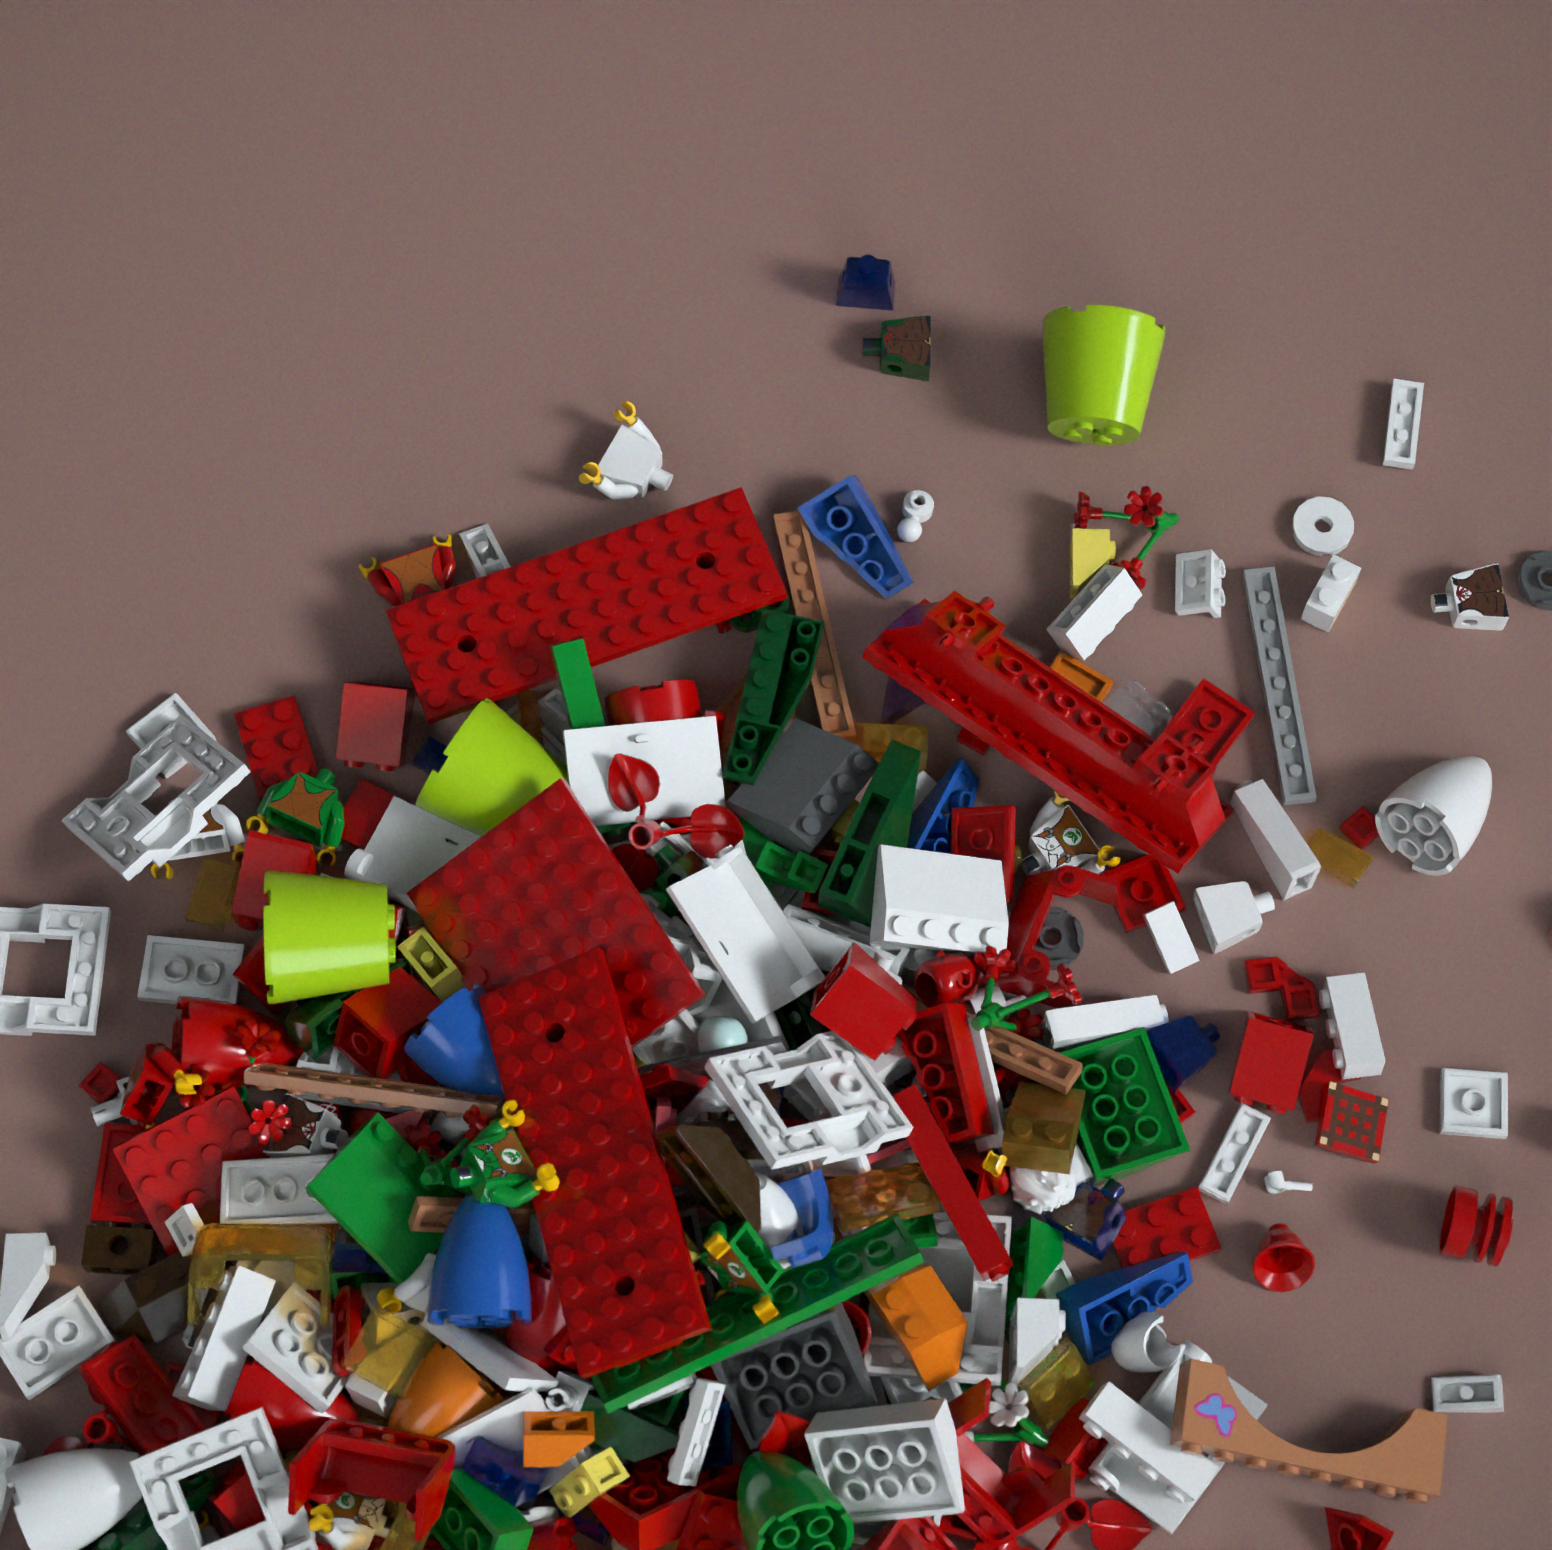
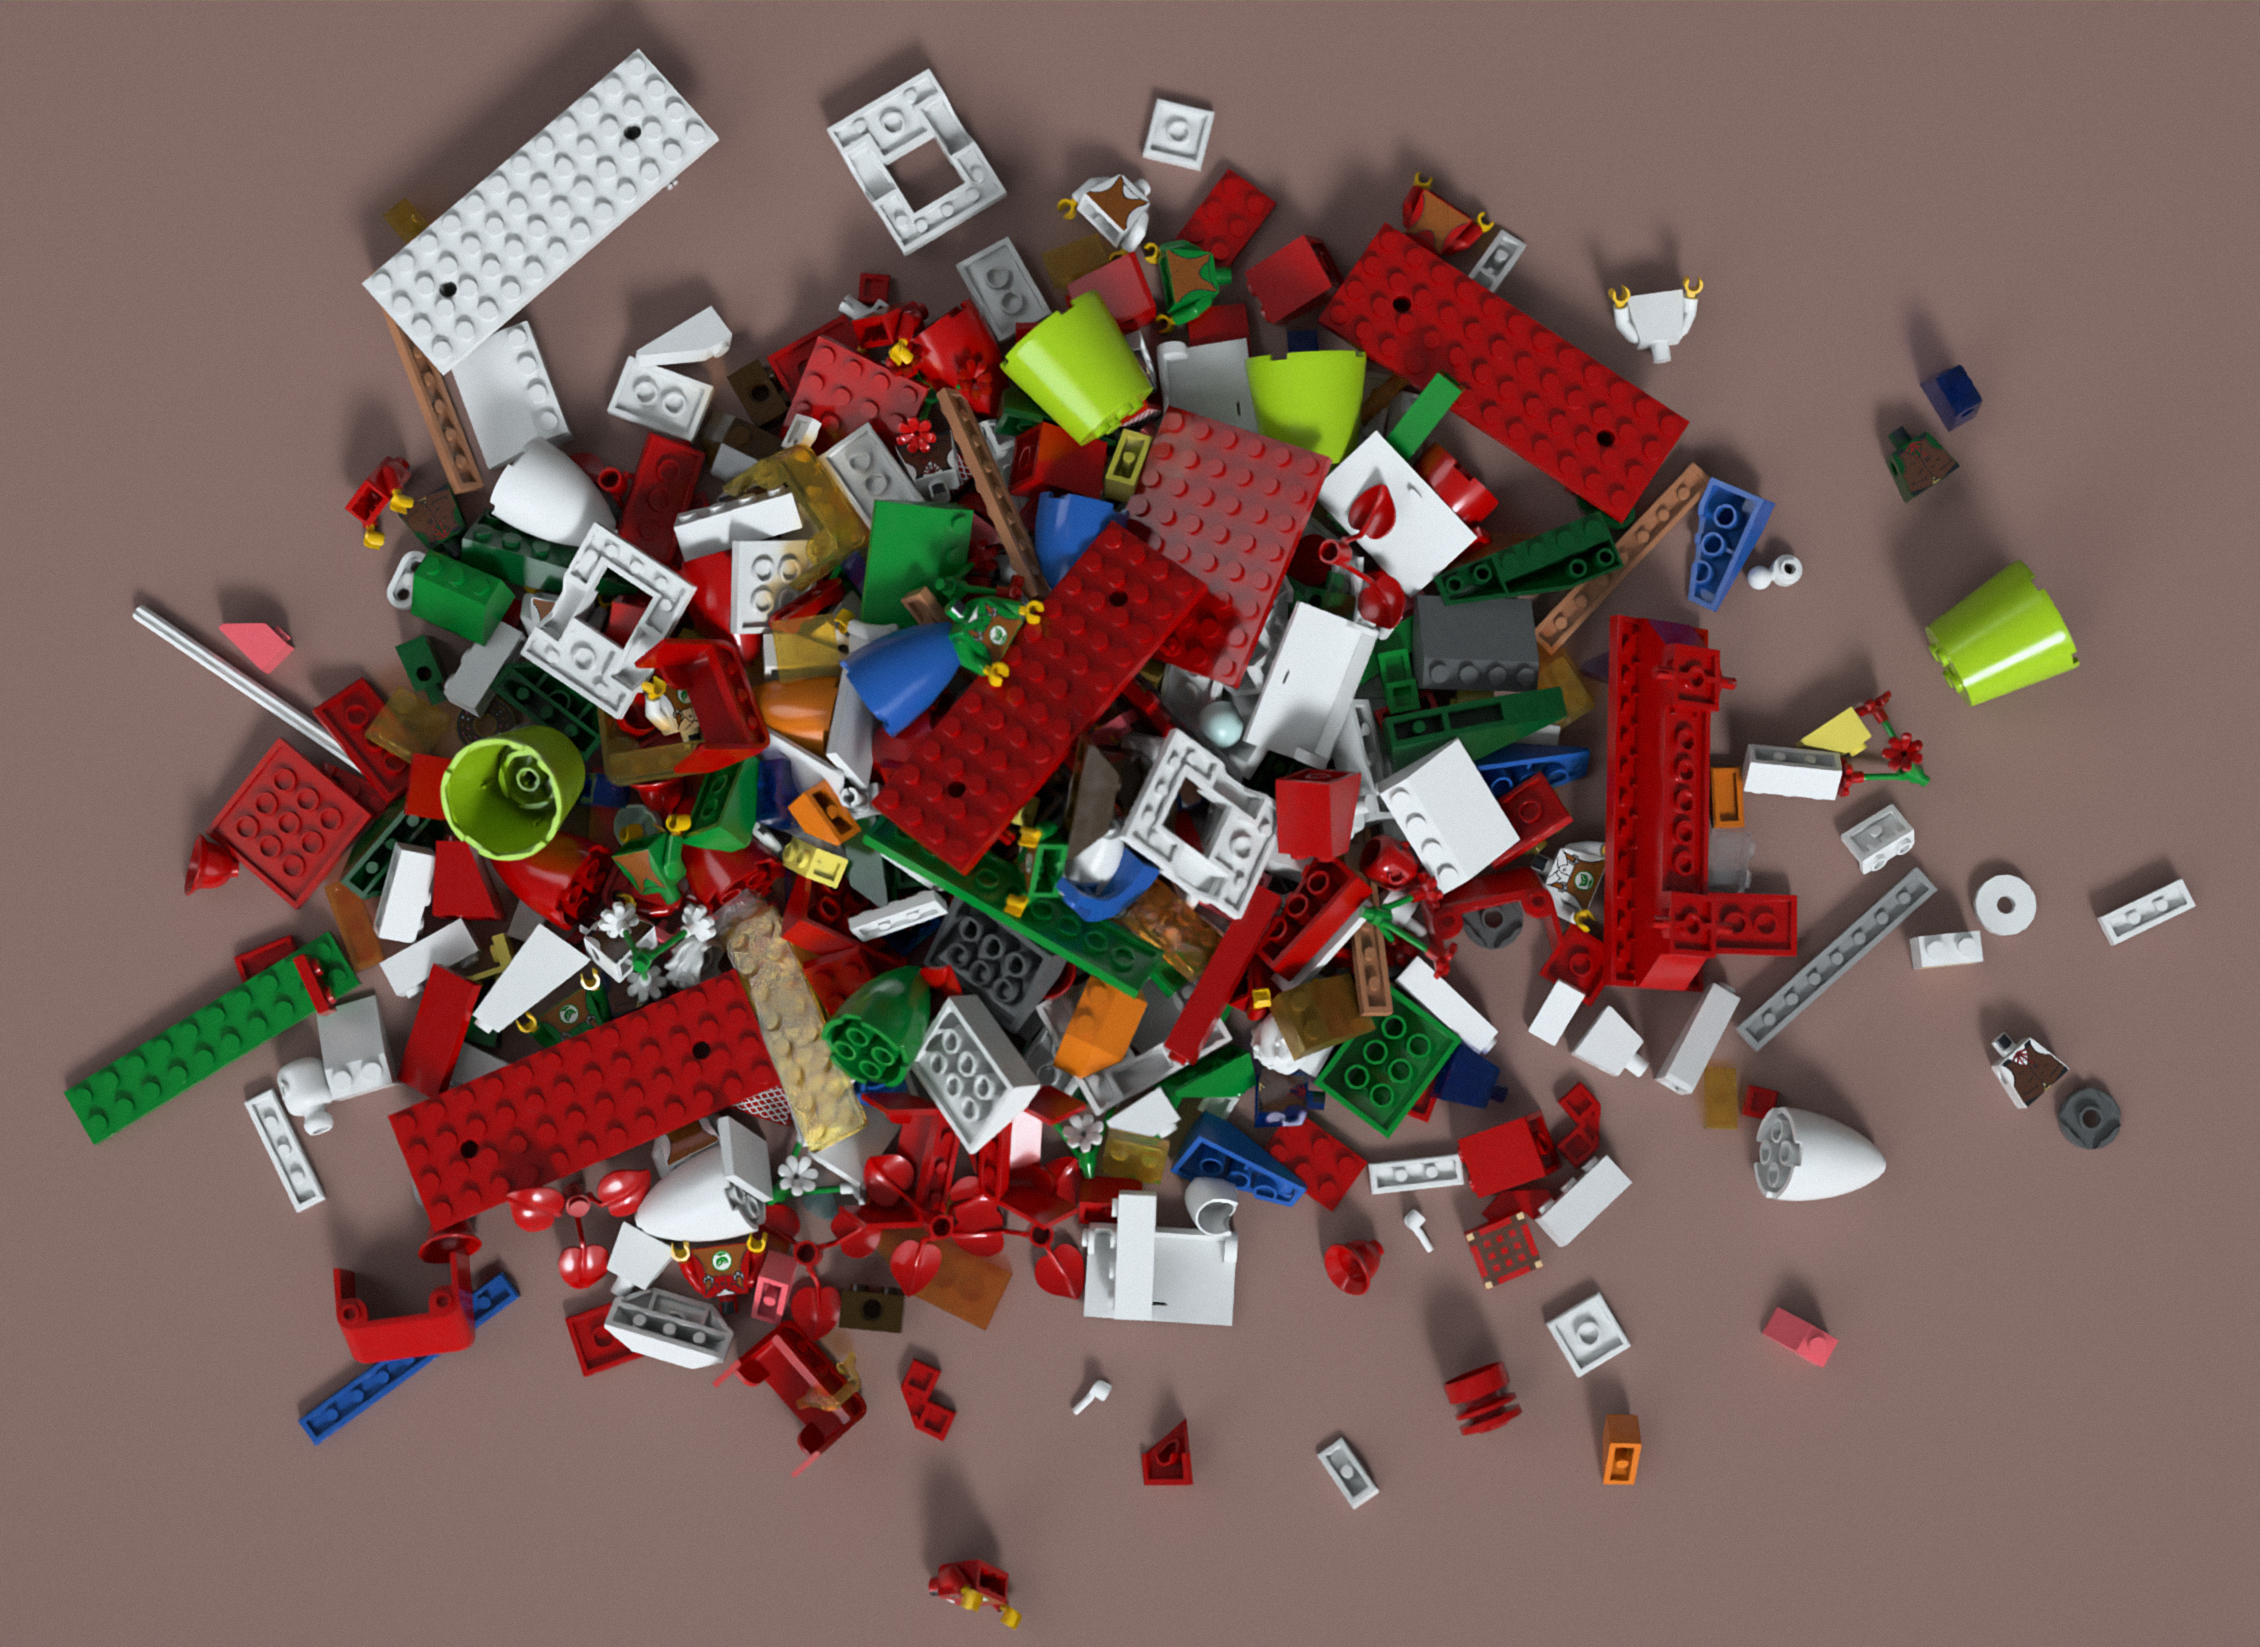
camera: 55 degrees right, 15 degrees up
(132, 836) = (1070, 156): white piece -> none
(1215, 1422) = (1257, 1454): nougat arch -> none

